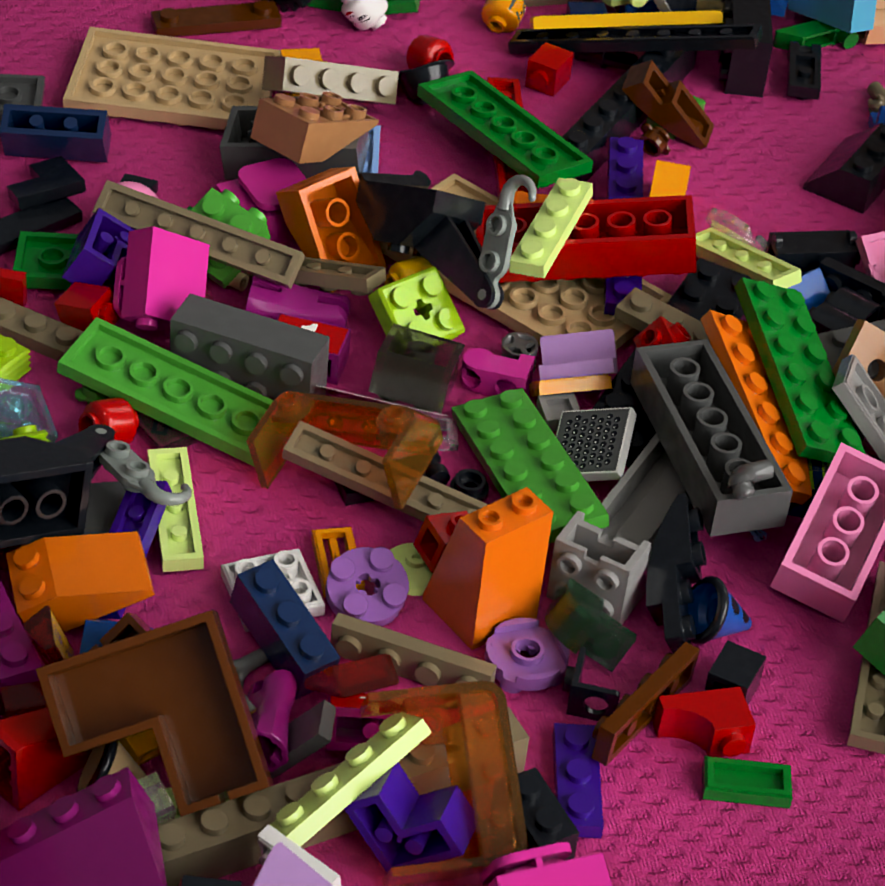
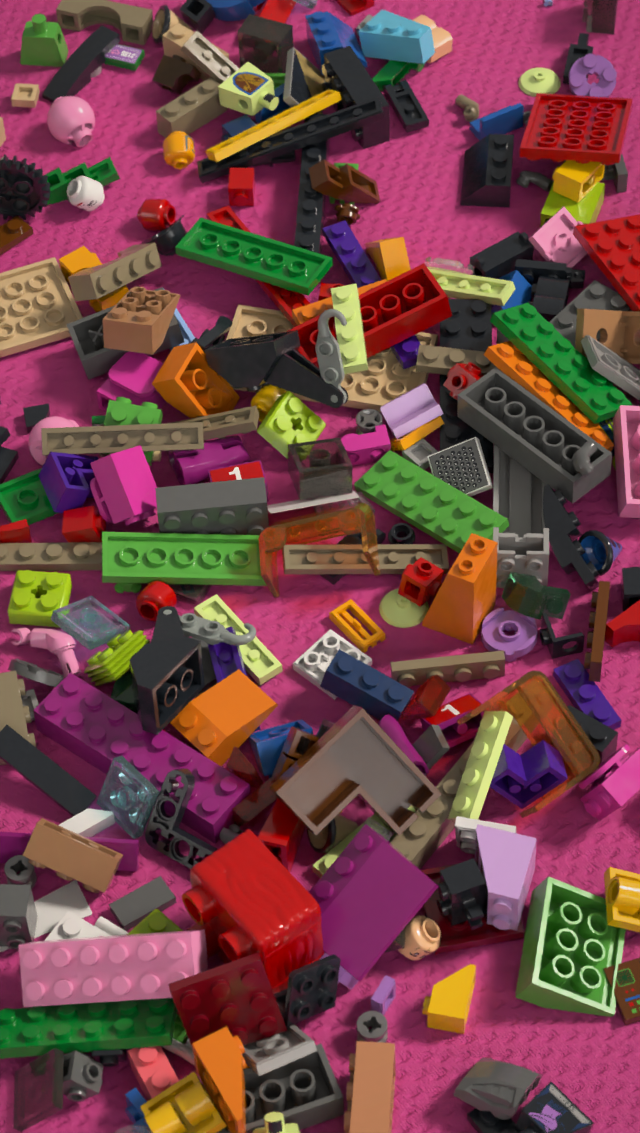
camera: 20 degrees left, 10 degrees up
(377, 567) = (391, 620): medium lavender plate -> none

